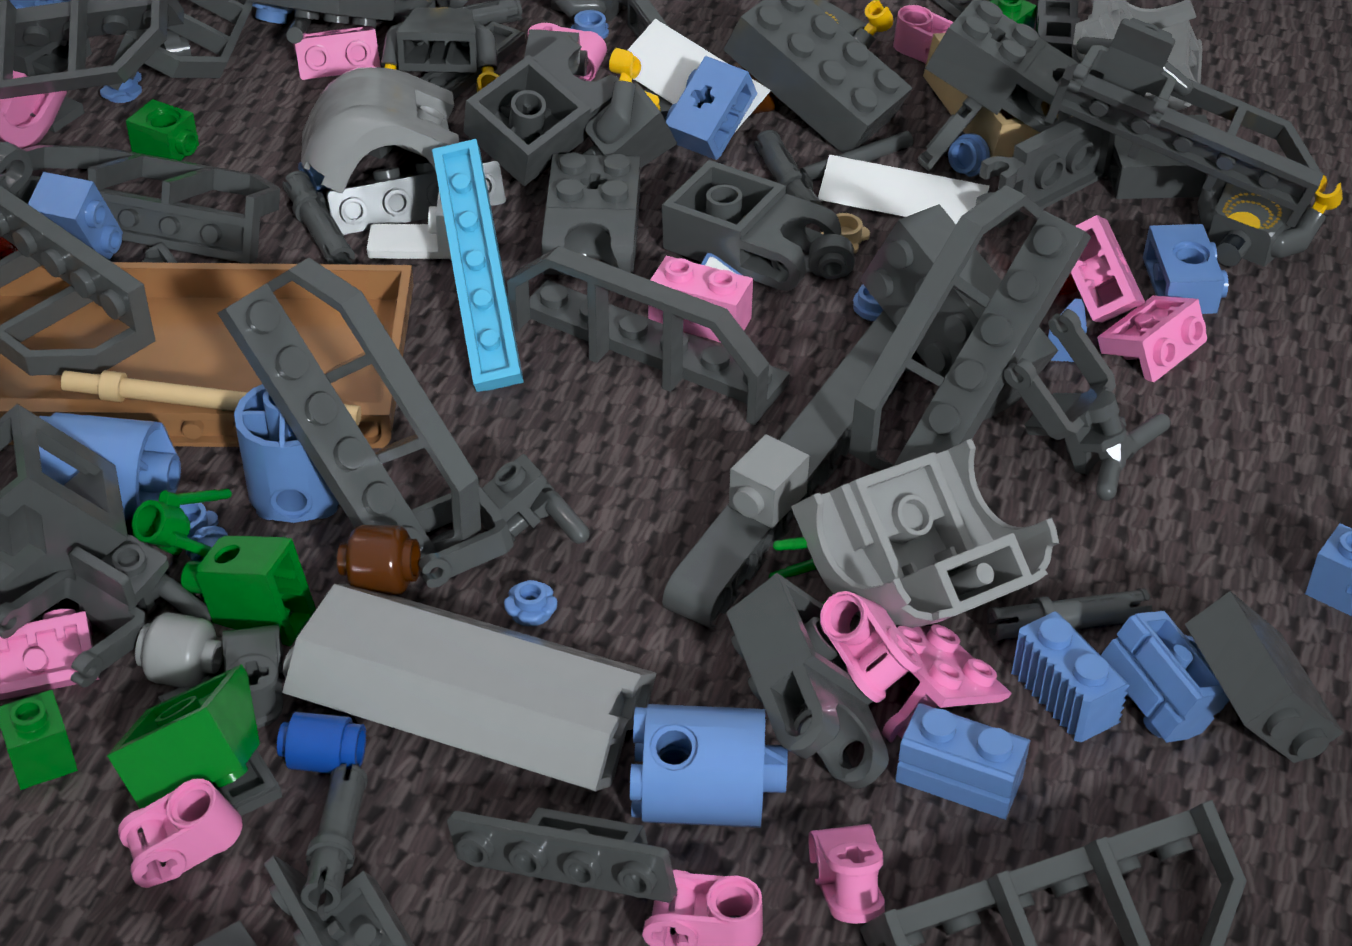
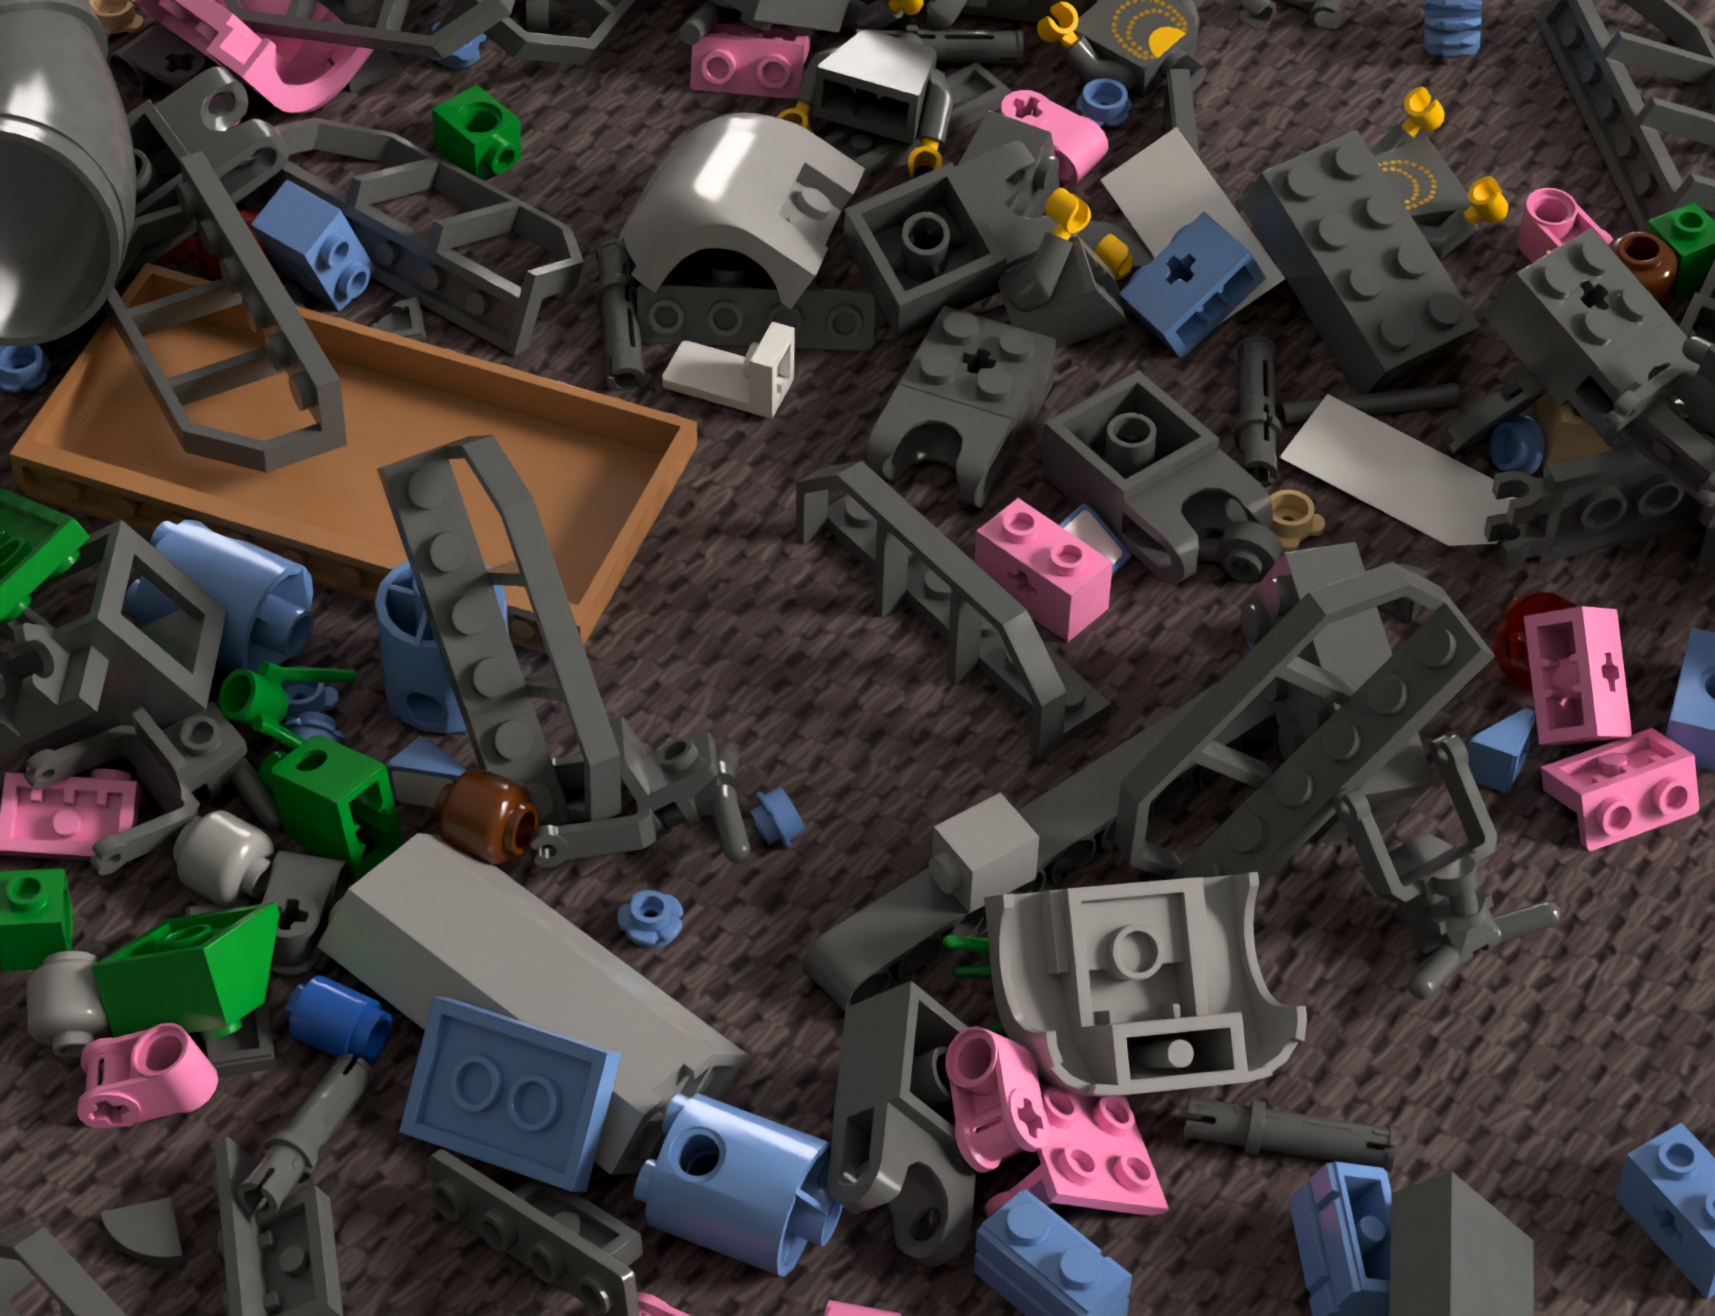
camera: 20 degrees right, 5 degrees up
(90, 795) = (65, 1004): none -> light grey head
(117, 386) = (275, 500): tan bar -> none
(317, 547) = (421, 773): none -> slope
(477, 266) = (772, 446): medium azure plate -> none
(493, 752) = (510, 1093): none -> medium blue plate
(593, 507) = (777, 818): none -> medium blue plate
(1069, 677) = (1236, 1211): medium blue brick -> none

